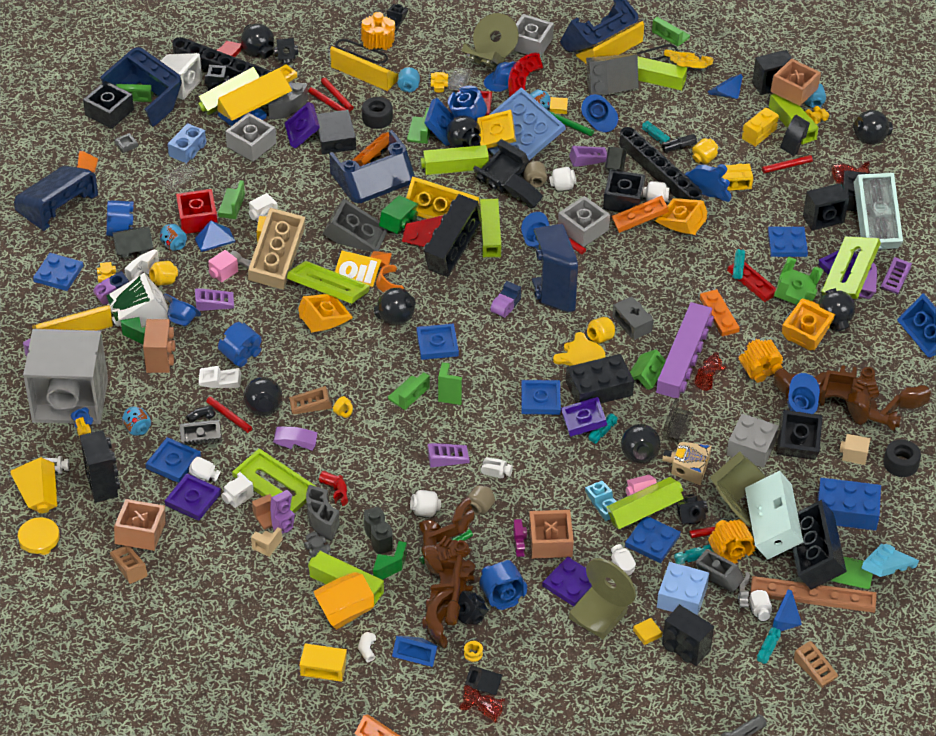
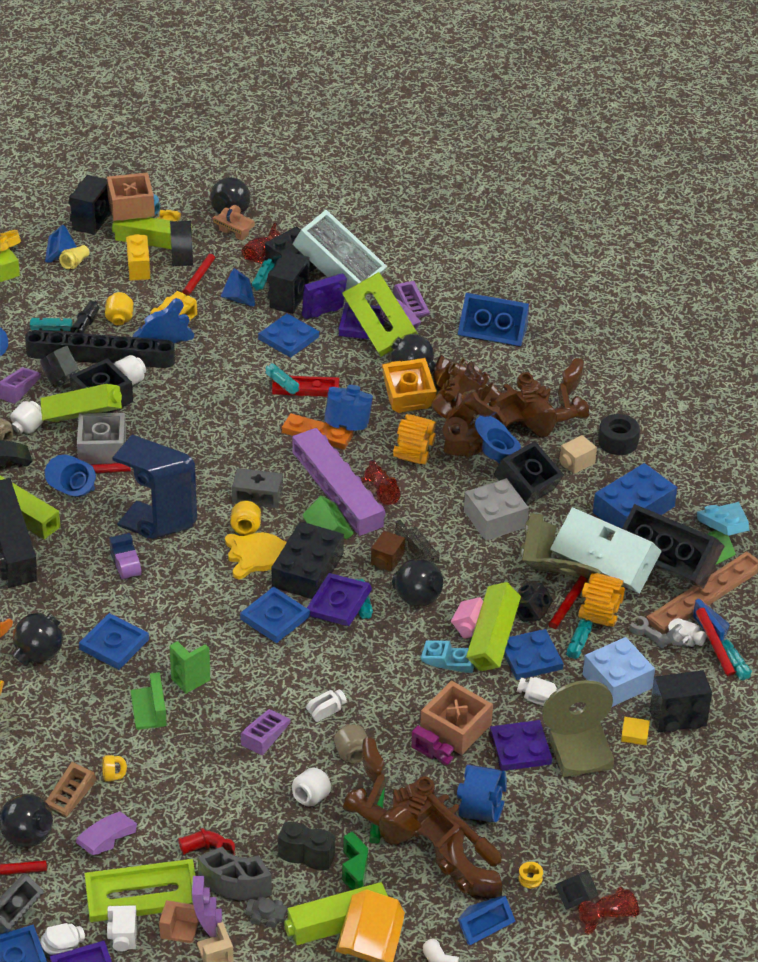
camera: 50 degrees left, 5 degrees down
(471, 608) = (487, 829): black brick -> none
(593, 190) = (86, 400): none -> lime brick
(640, 214) = (142, 396): orange plate -> none
(653, 412) = (387, 551): none -> reddish brown brick
(684, 216) = (175, 374): light orange slope -> none
(689, 461) = (472, 566): tan torso -> none
(720, 570) = (634, 625): dark grey brick -> none
(724, 99) = (73, 257): none -> light yellow cone
(749, 310) = (348, 407): none -> blue brick
(767, 623) = (715, 642): none -> red bar
(796, 285) = (351, 363): bright green panel -> none
(797, 190) = (238, 289): none -> blue slope
(819, 350) = (462, 395): none -> reddish brown piece
(833, 230) = (324, 296): none -> dark purple plate
(851, 145) = (232, 220): none -> nougat hips

